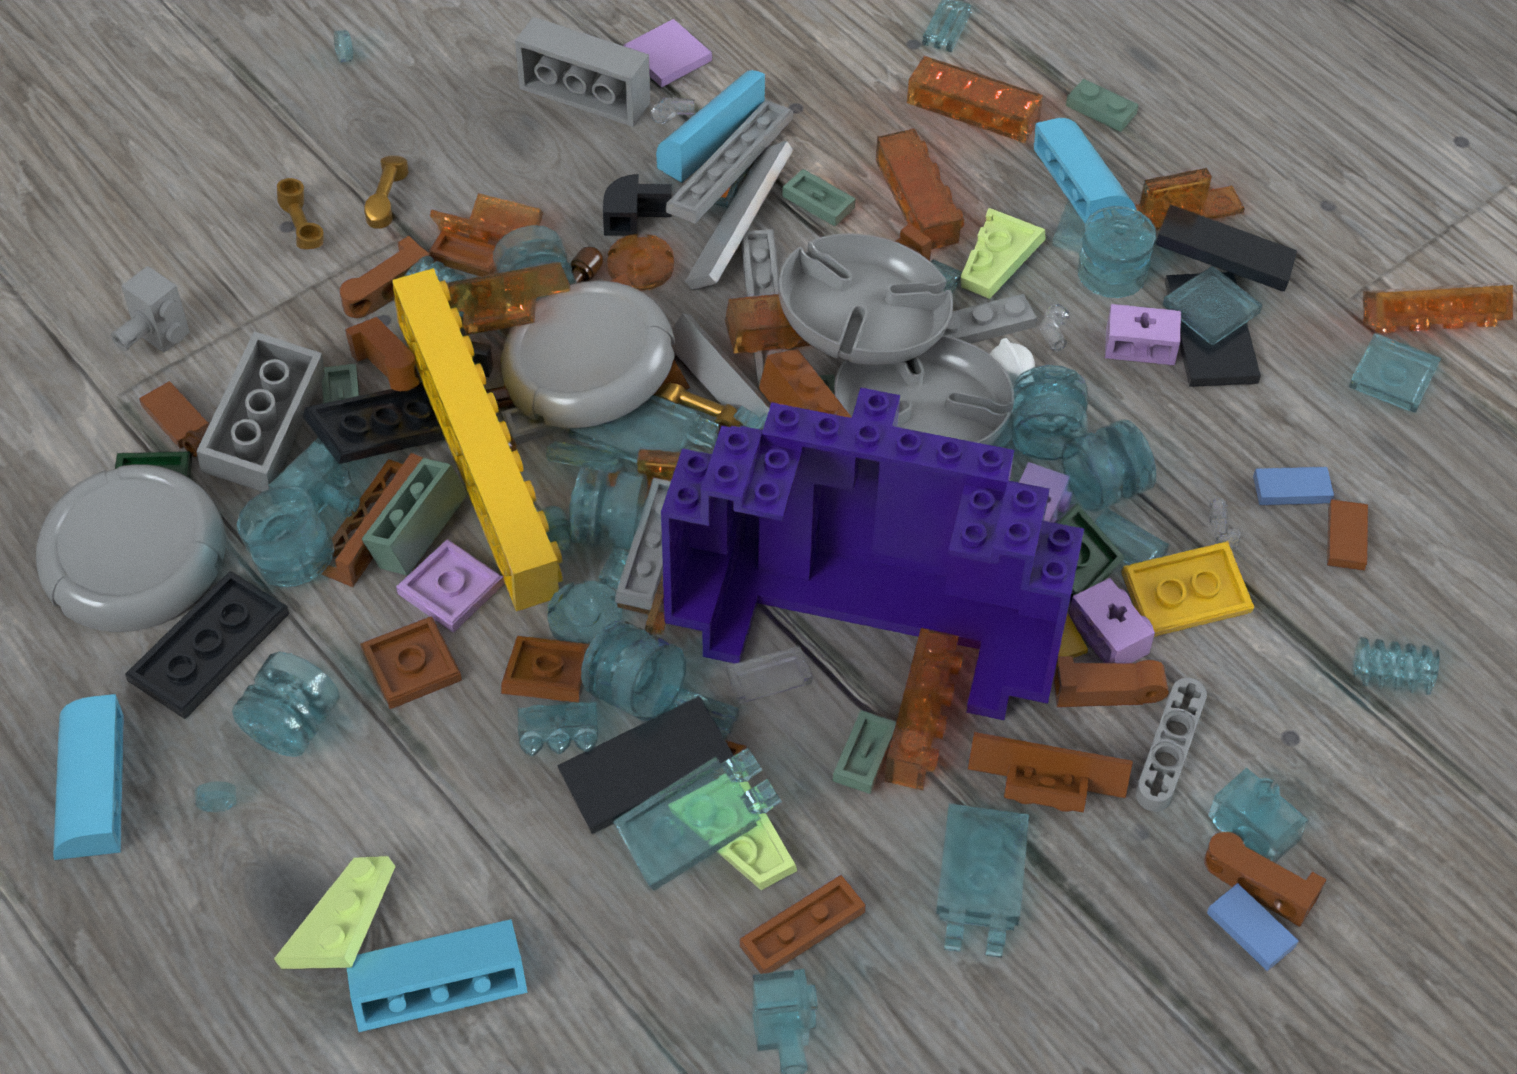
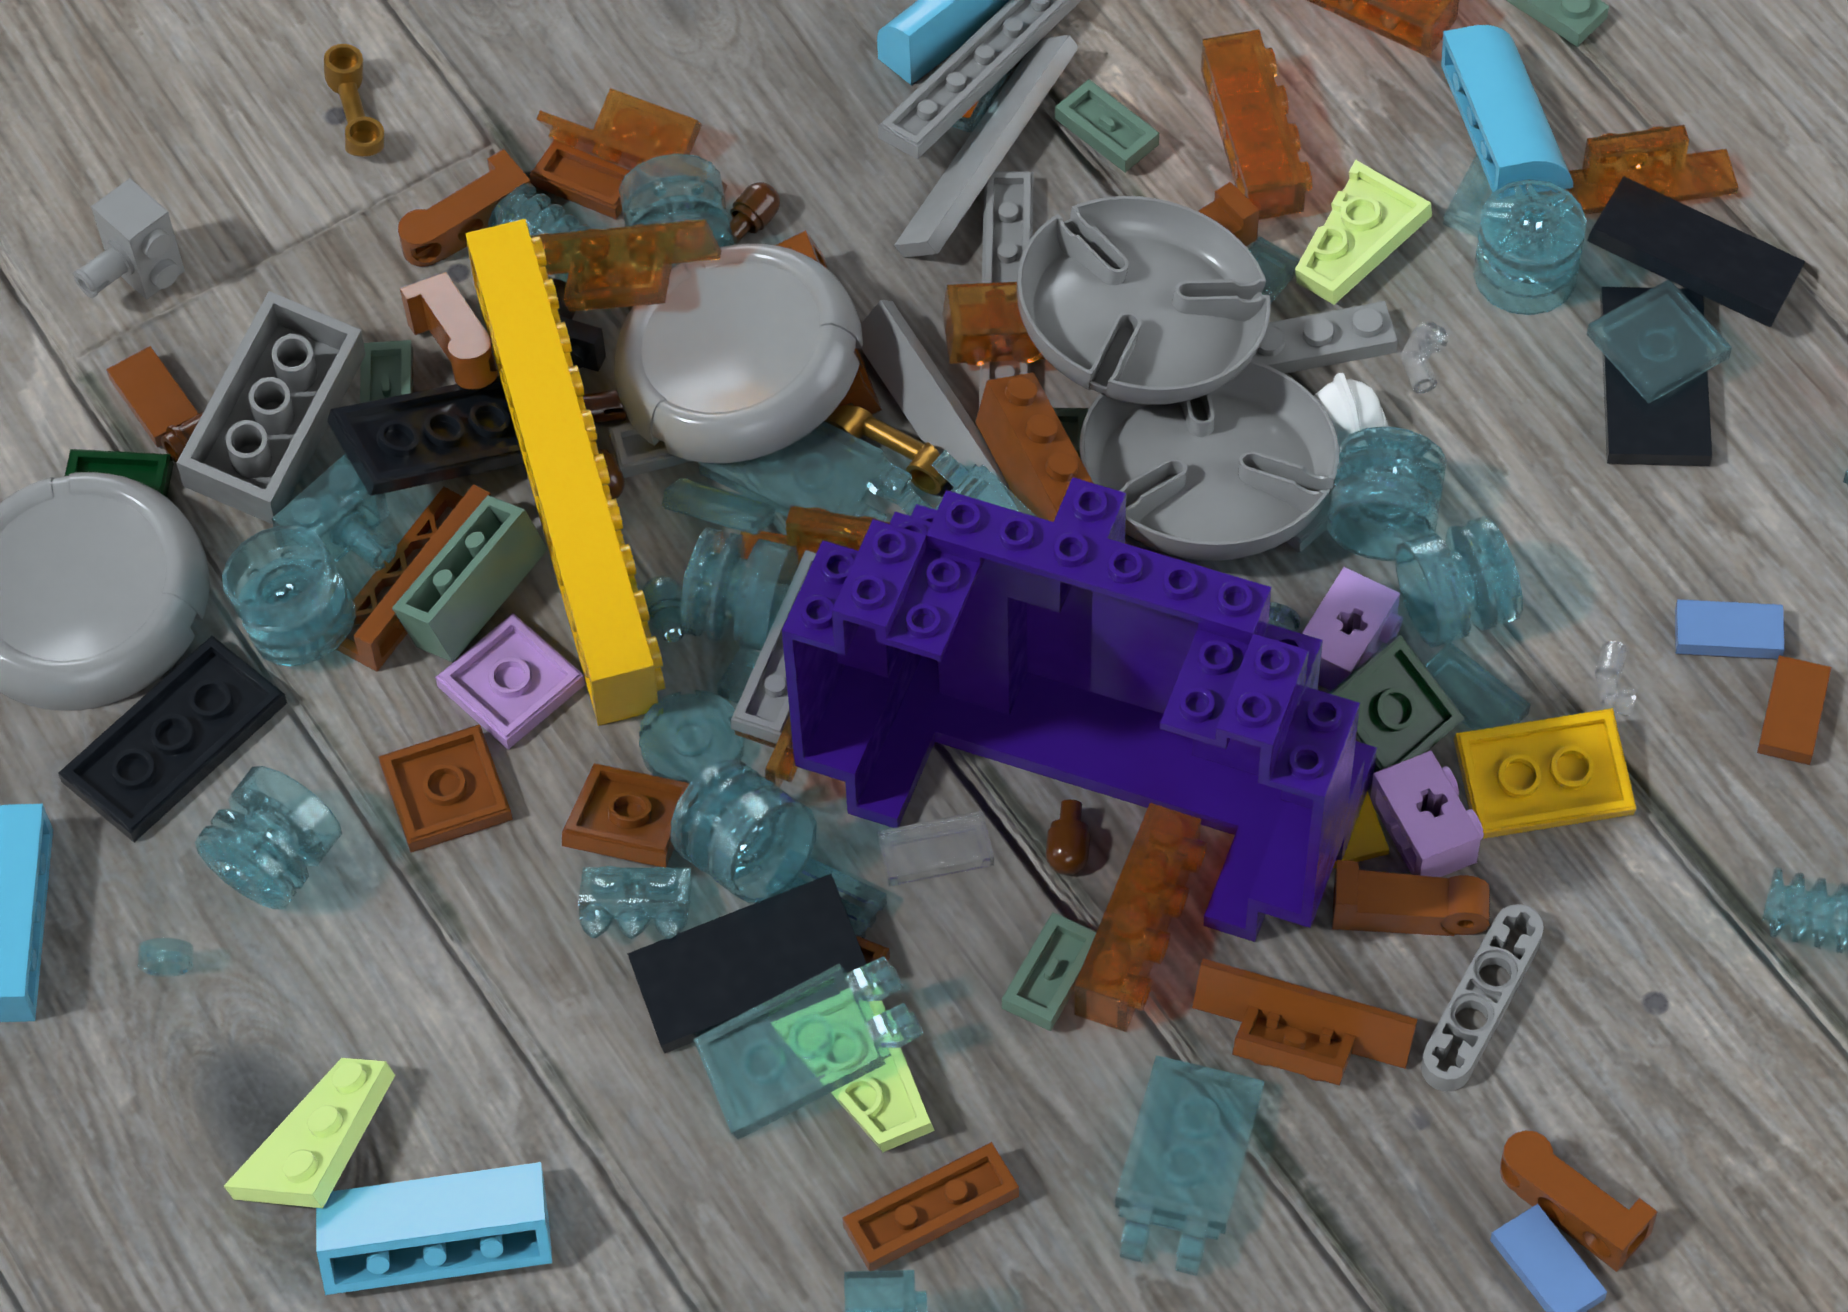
camera: 10 degrees right, 5 degrees up
(377, 206) = (465, 96): pearl gold bar -> none
(628, 200) = (827, 111): black brick -> none
(644, 260) = (835, 208): clear orange tile -> none
(863, 661) = (1068, 840): none -> reddish brown cylinder
(1142, 334) = (1548, 378): lavender brick -> none
(1258, 815) = (1581, 1114): clear light blue brick -> none

